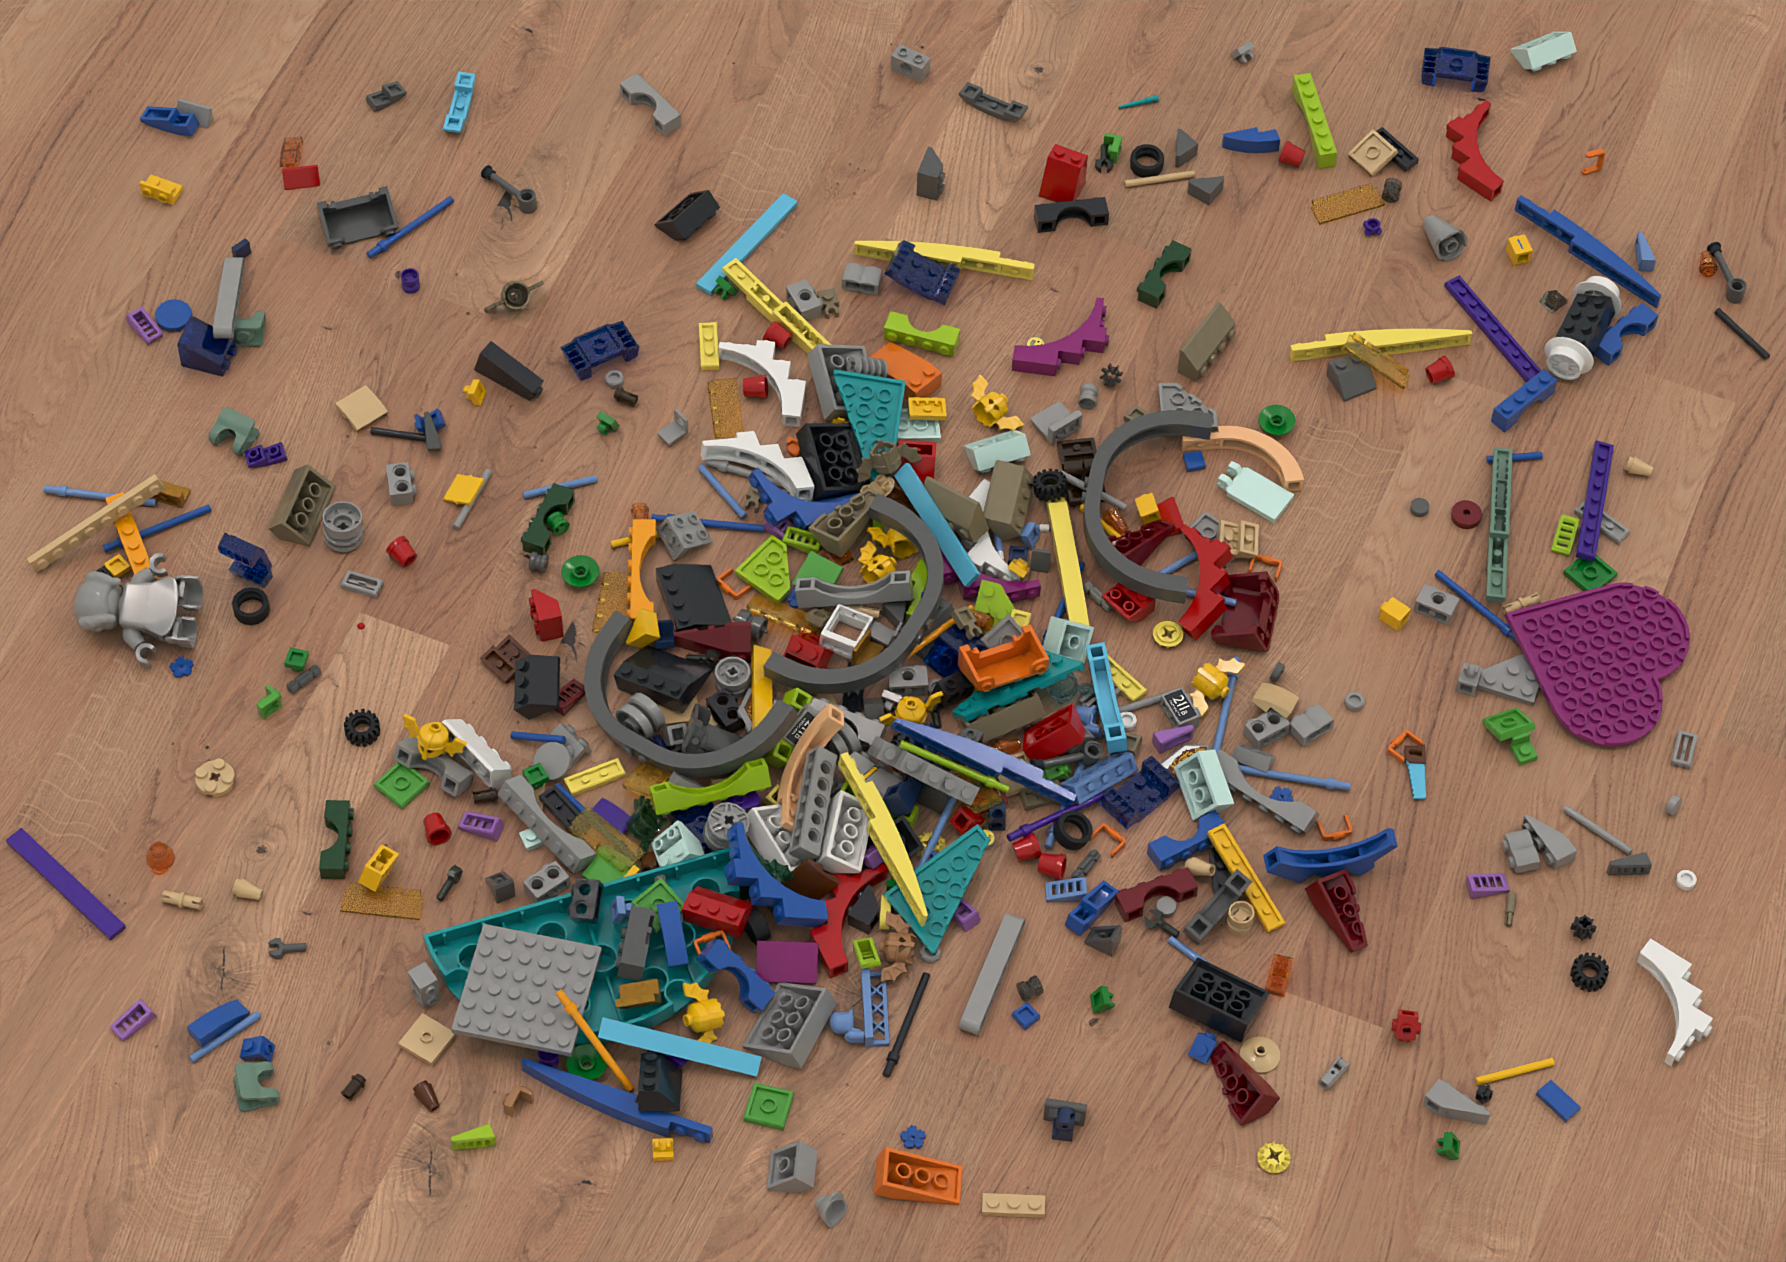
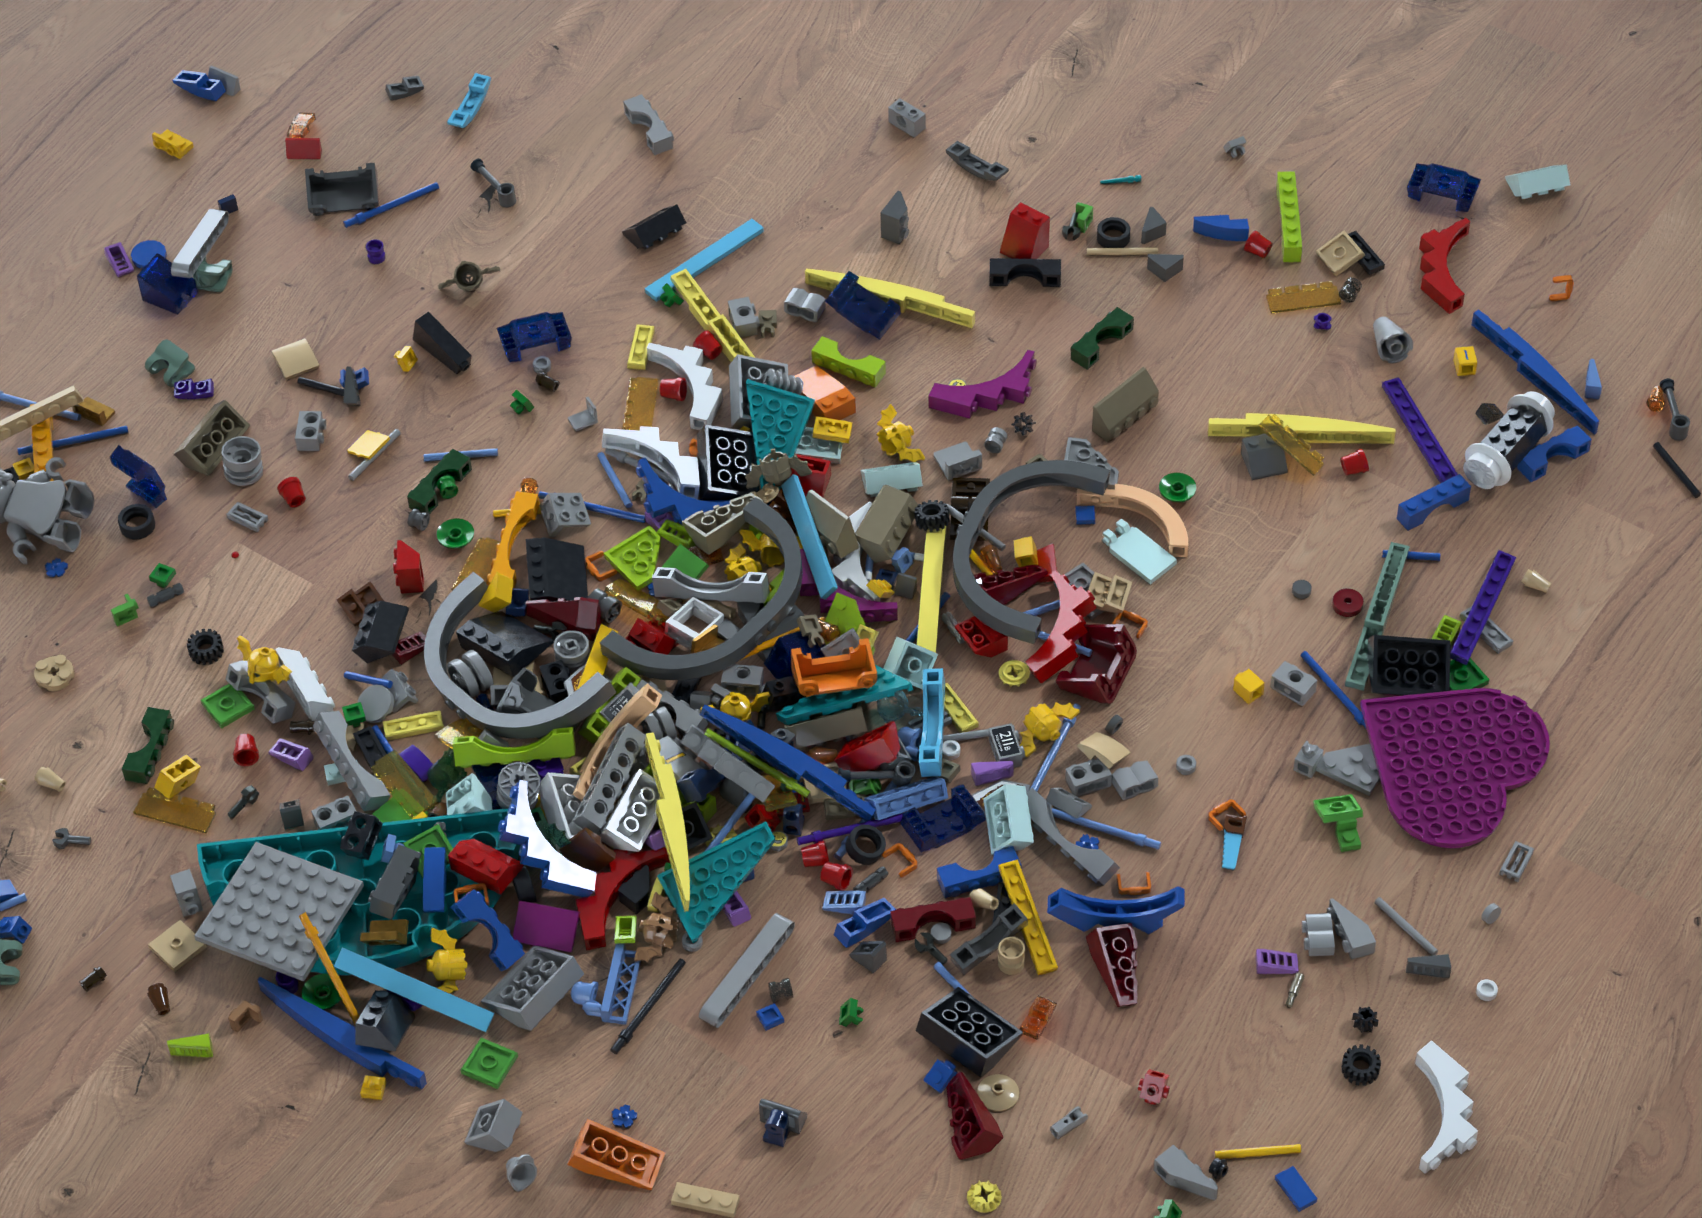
camera: 15 degrees right, 5 degrees down
(1542, 571) = (1408, 665): none -> black slope

